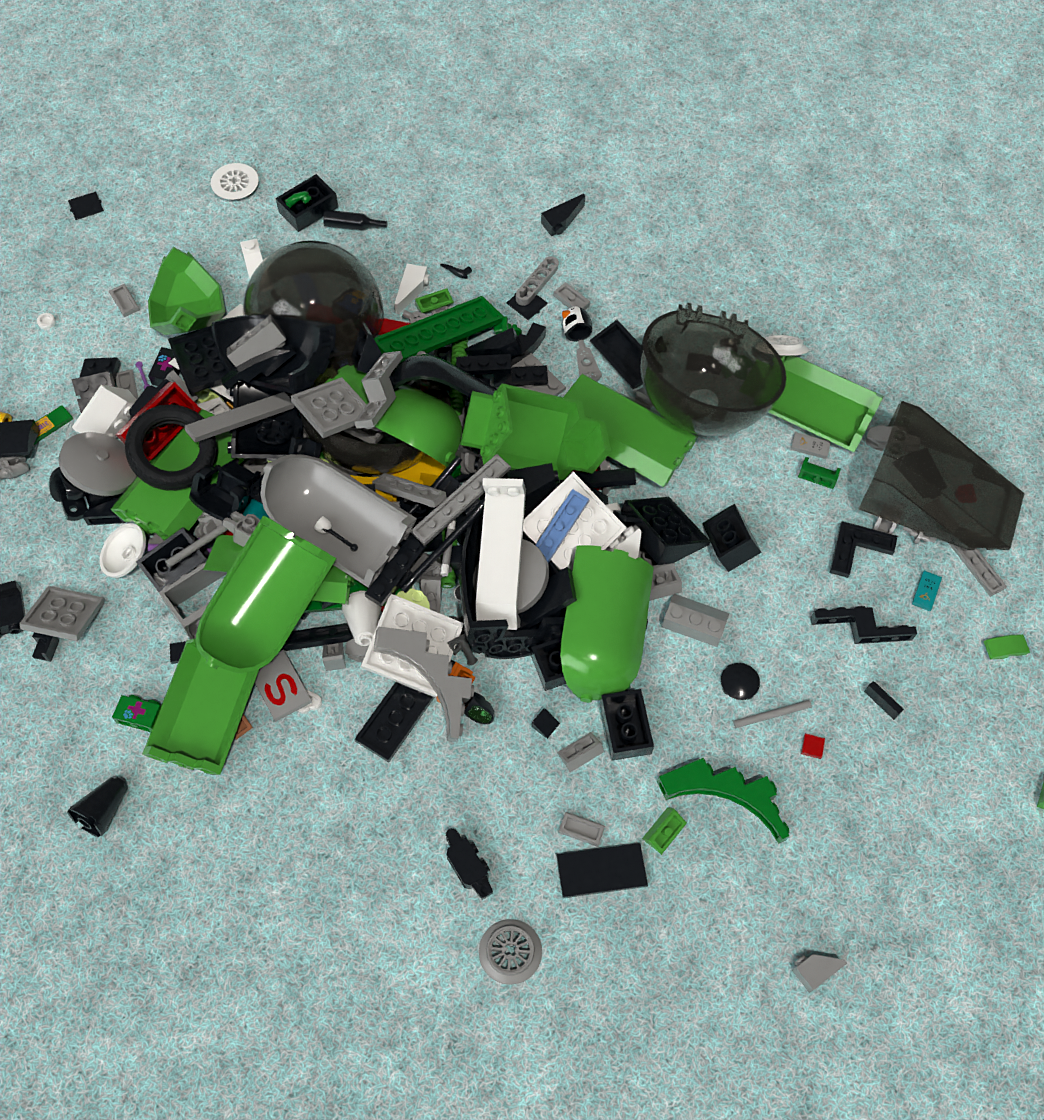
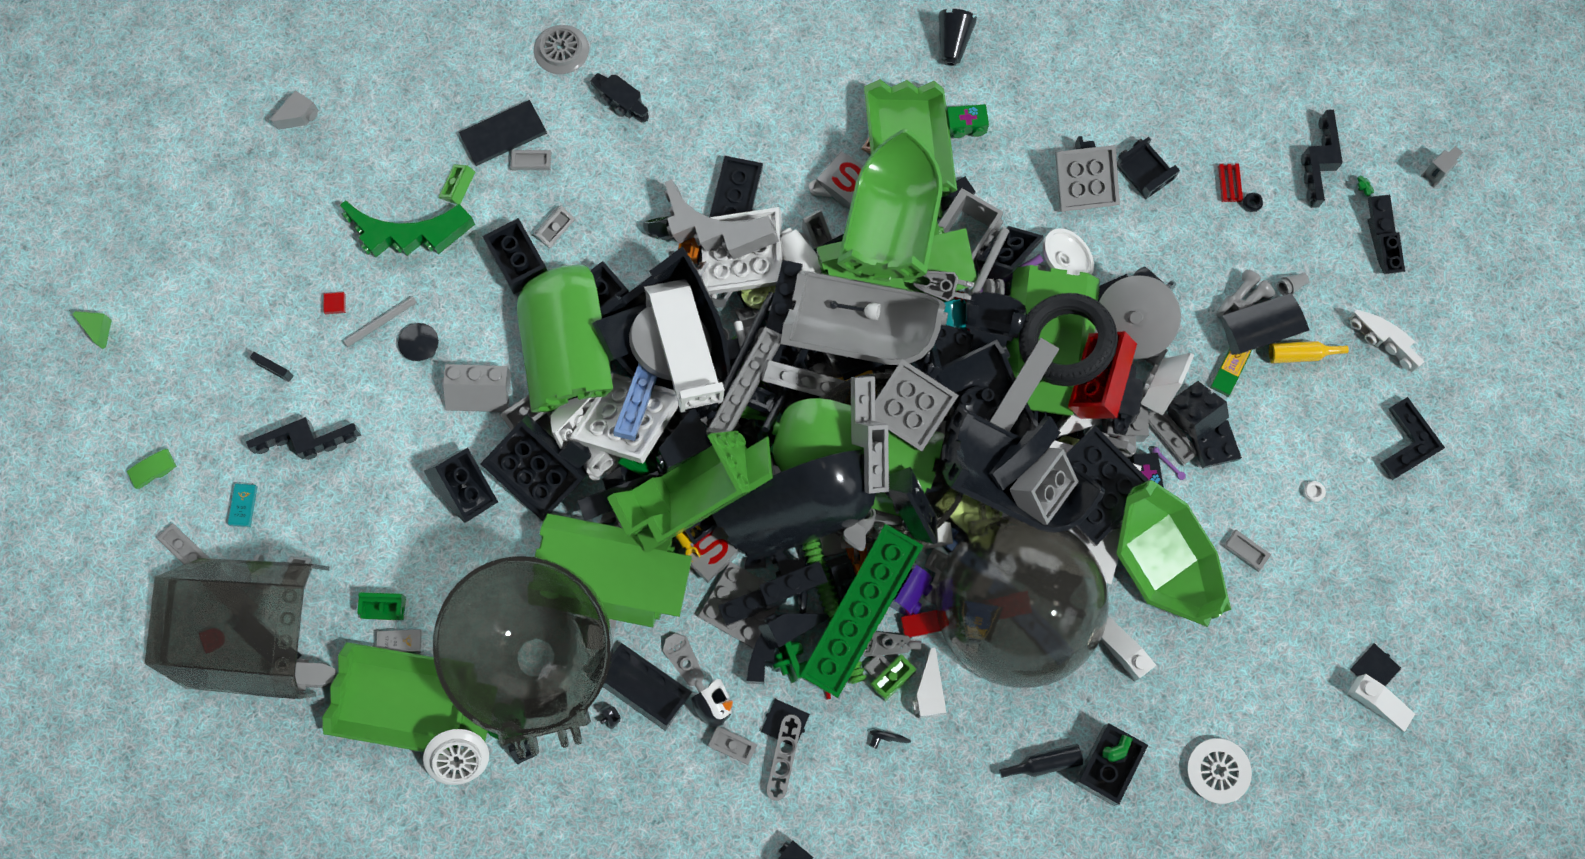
camera: 160 degrees right, 10 degrees up
(98, 185) = (1381, 701): none -> white slope
(545, 723) = (594, 239): black slope -> none
(854, 535) = (332, 540): black plate -> none

